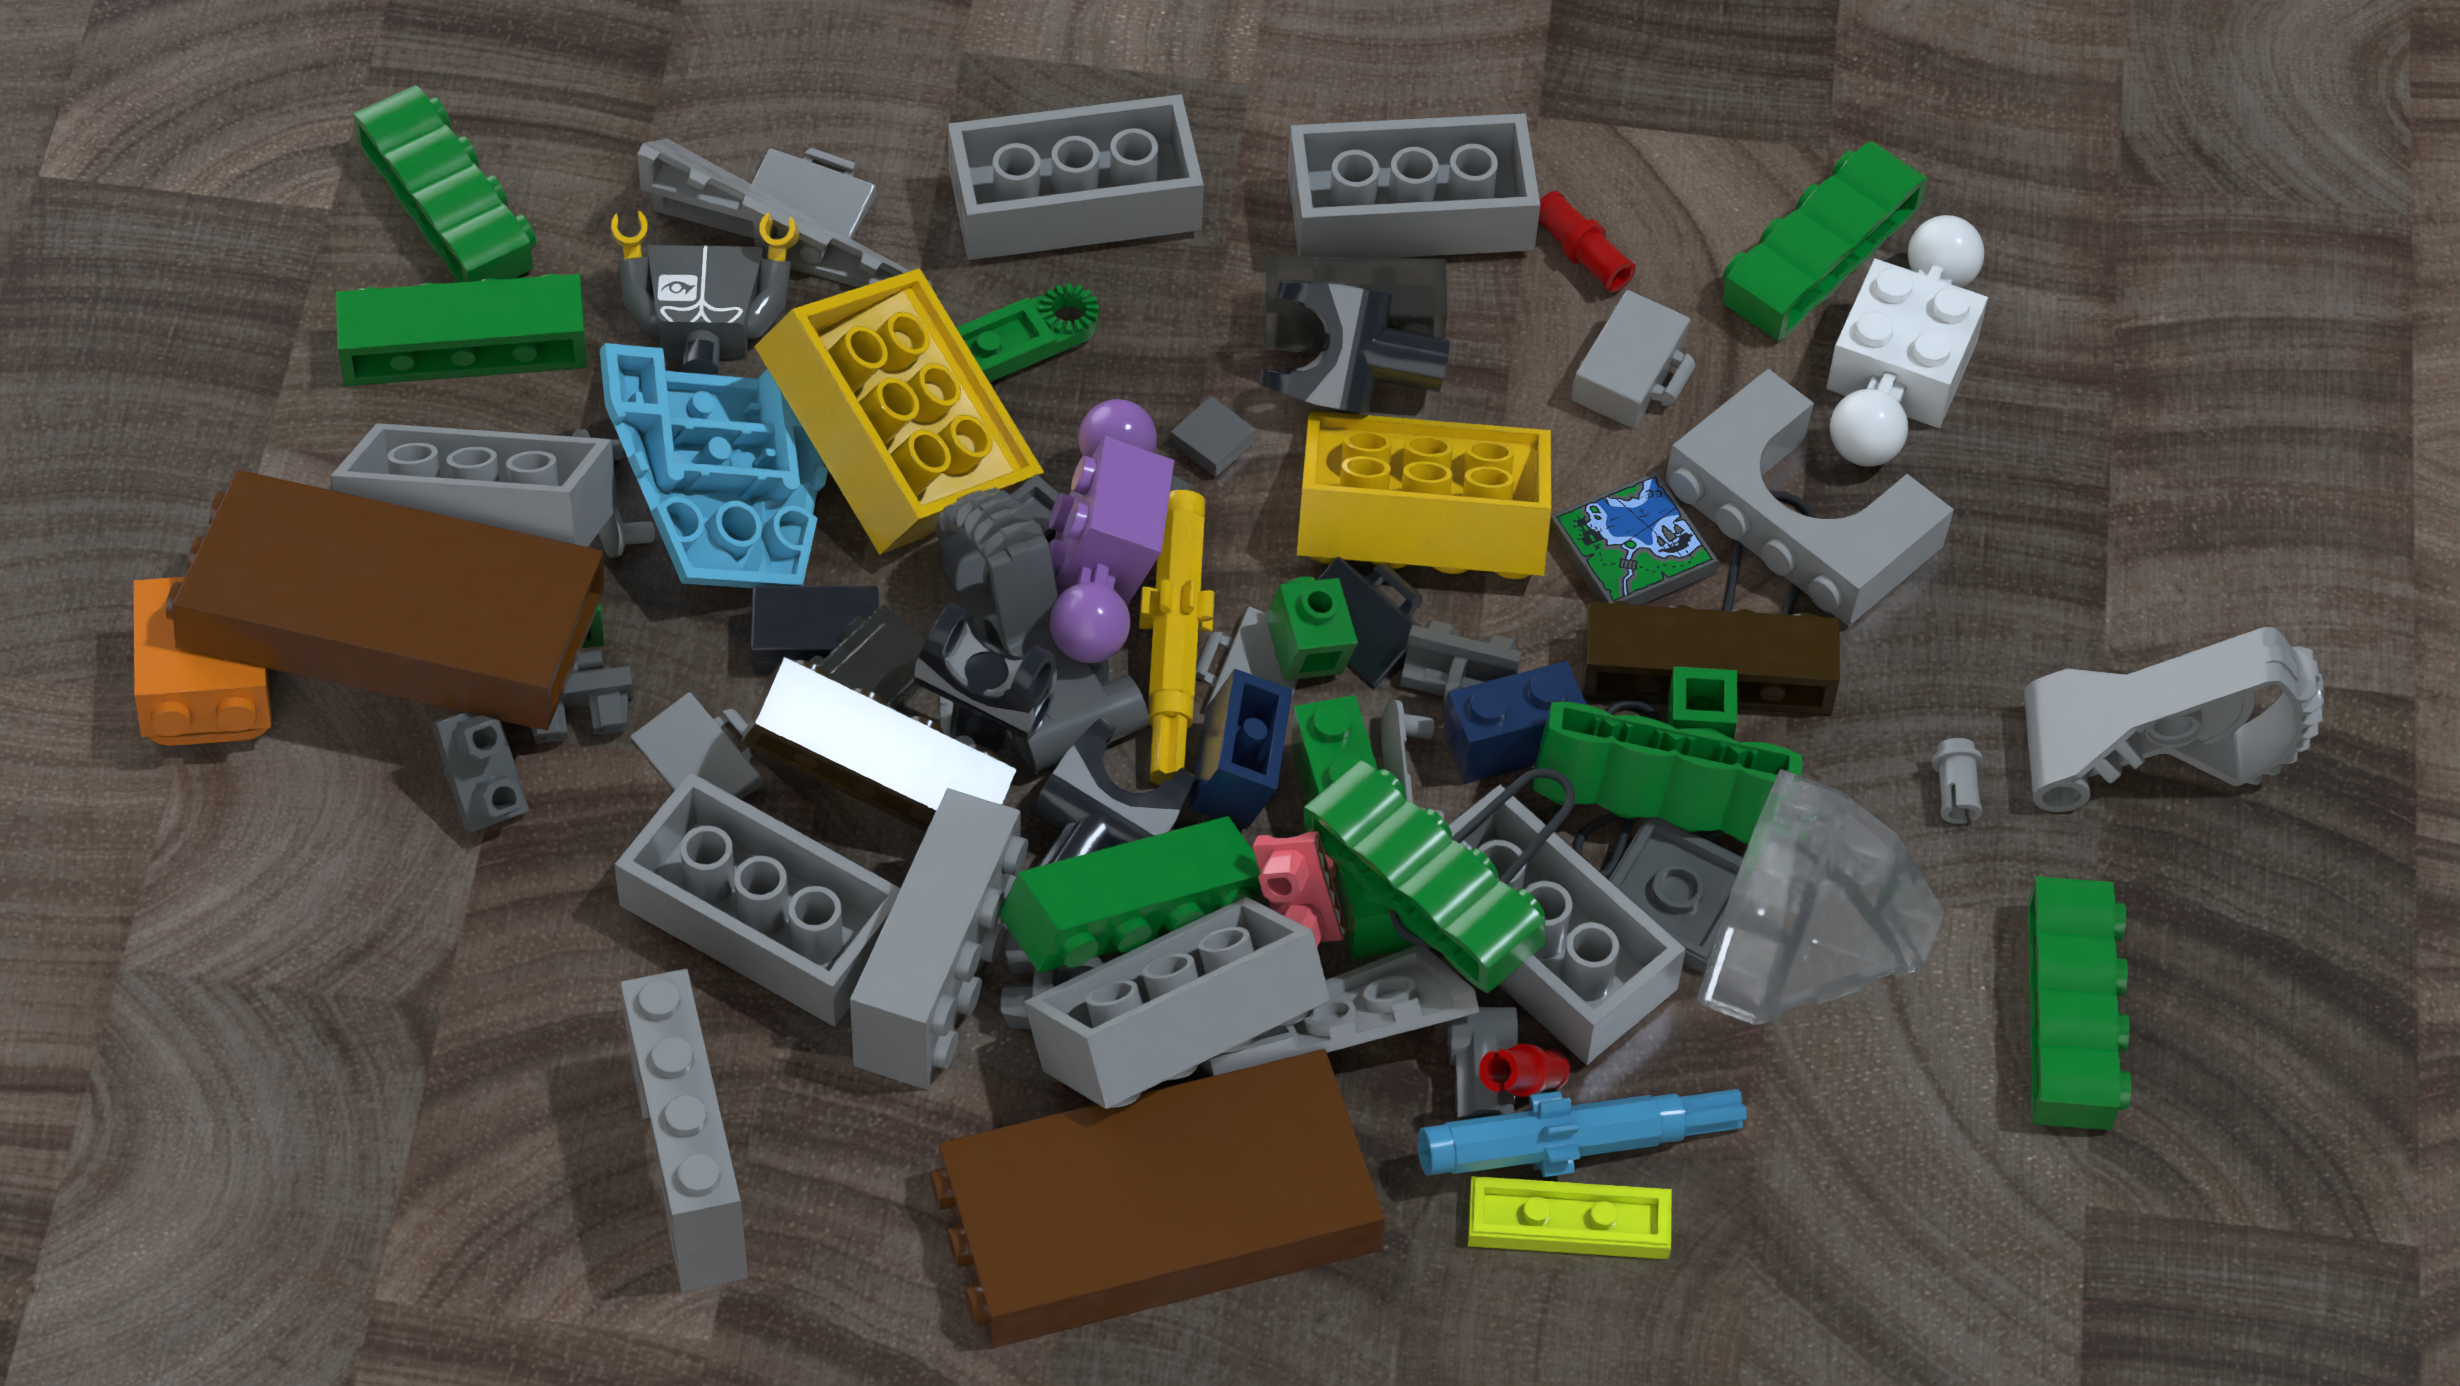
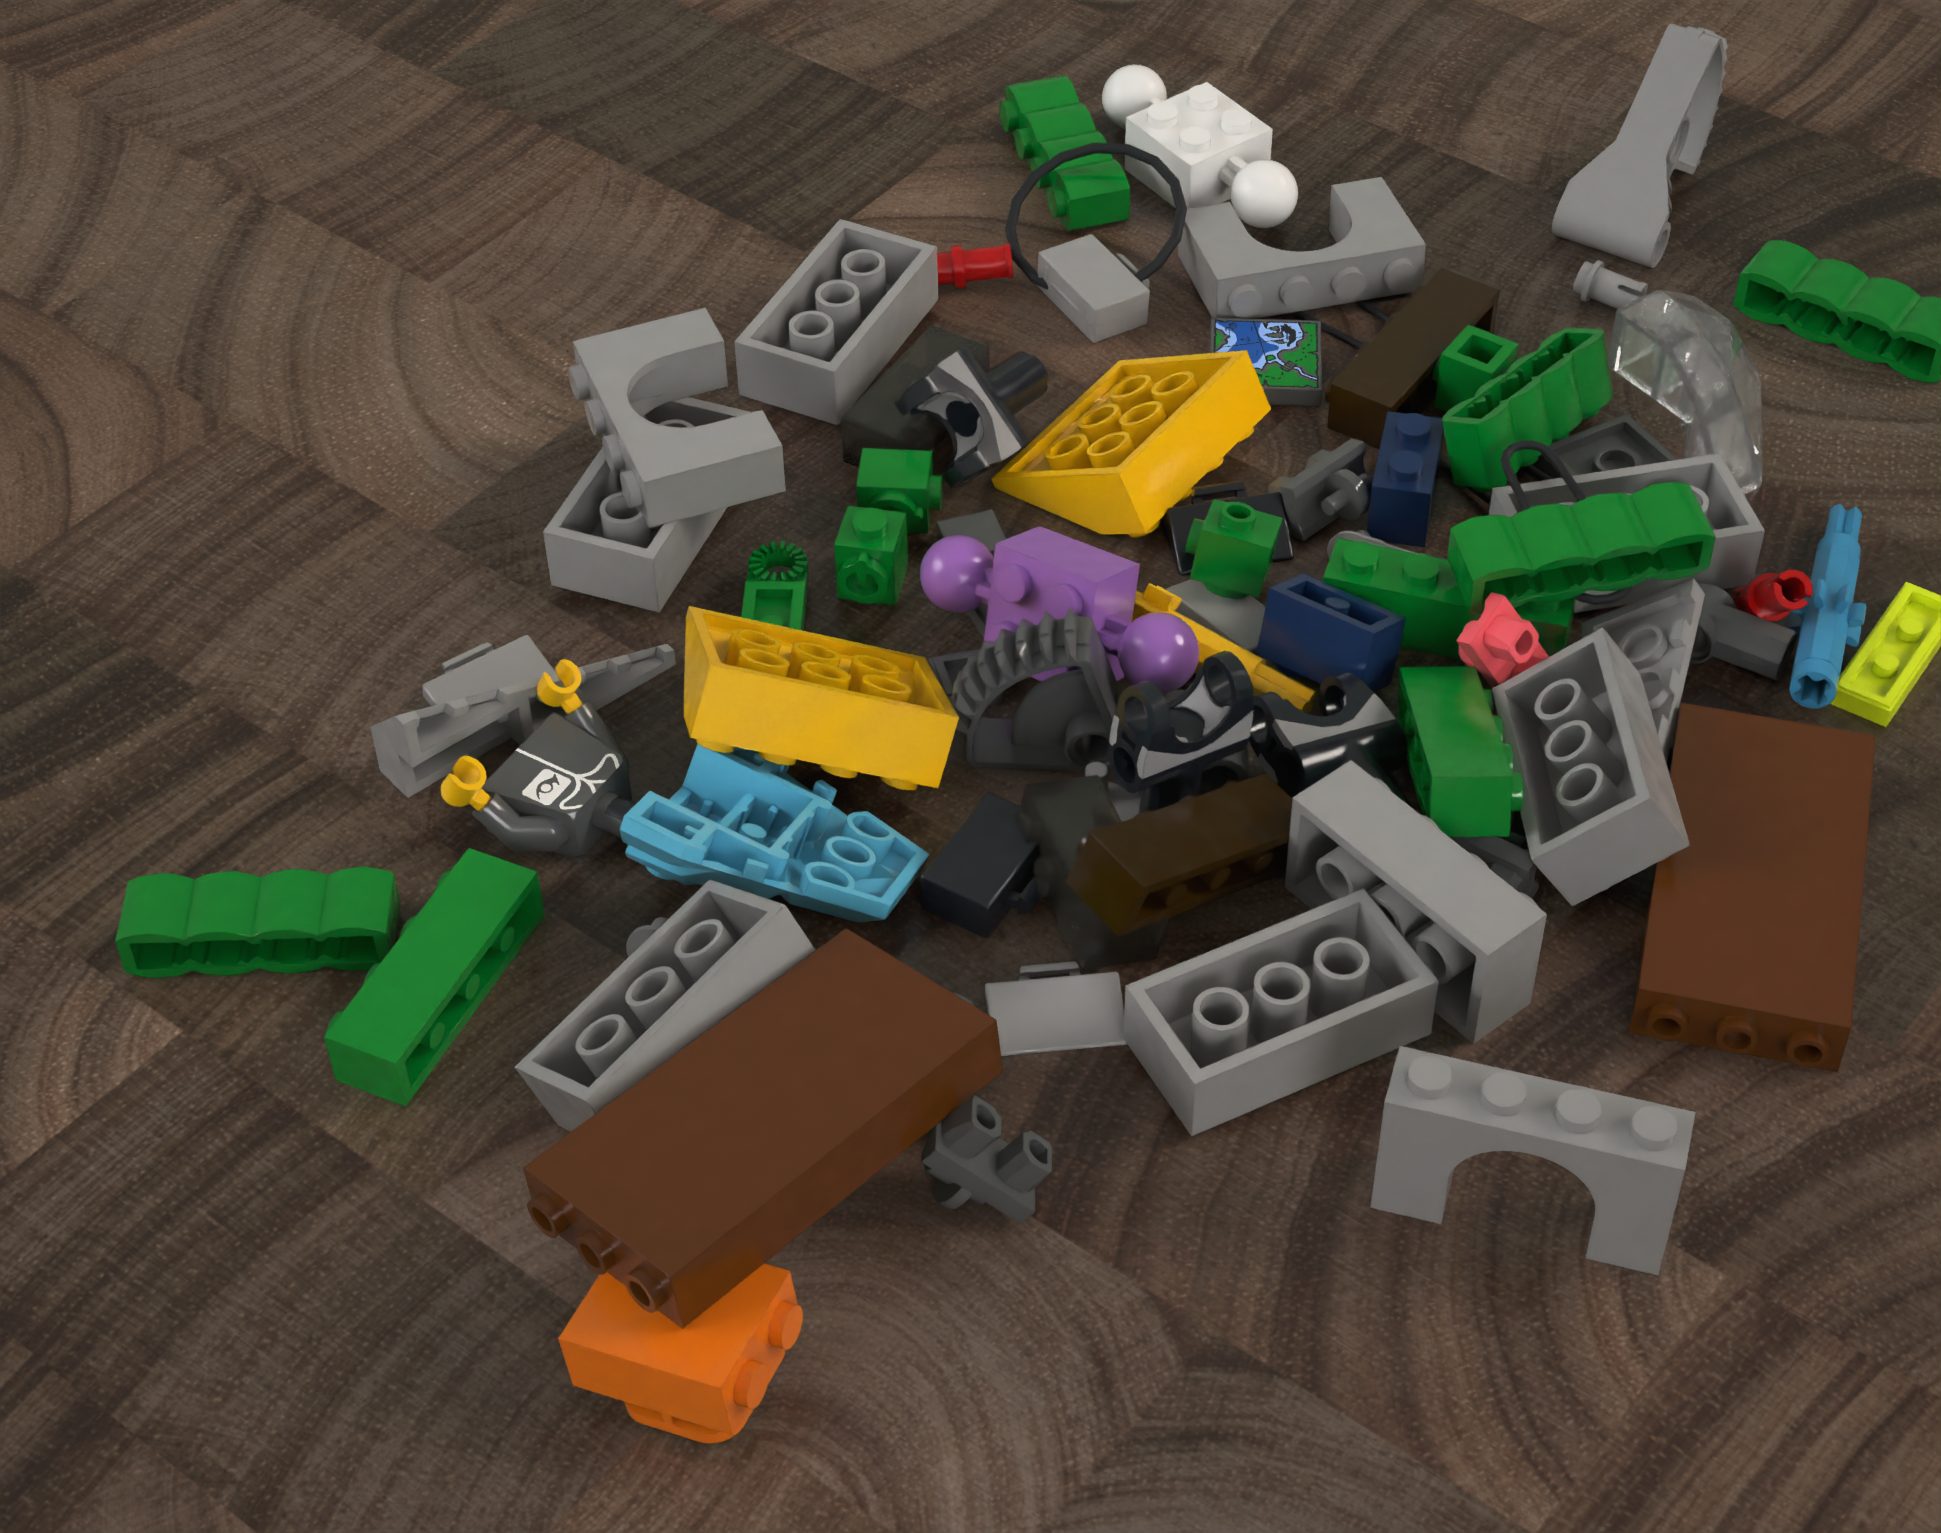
camera: 55 degrees left, 10 degrees down
(1121, 364) = (871, 555): none -> green brick
(1145, 71) = (666, 468): none -> light grey arch
(1223, 346) = (901, 484): none -> green brick
(1778, 351) = (1101, 148): none -> black piece

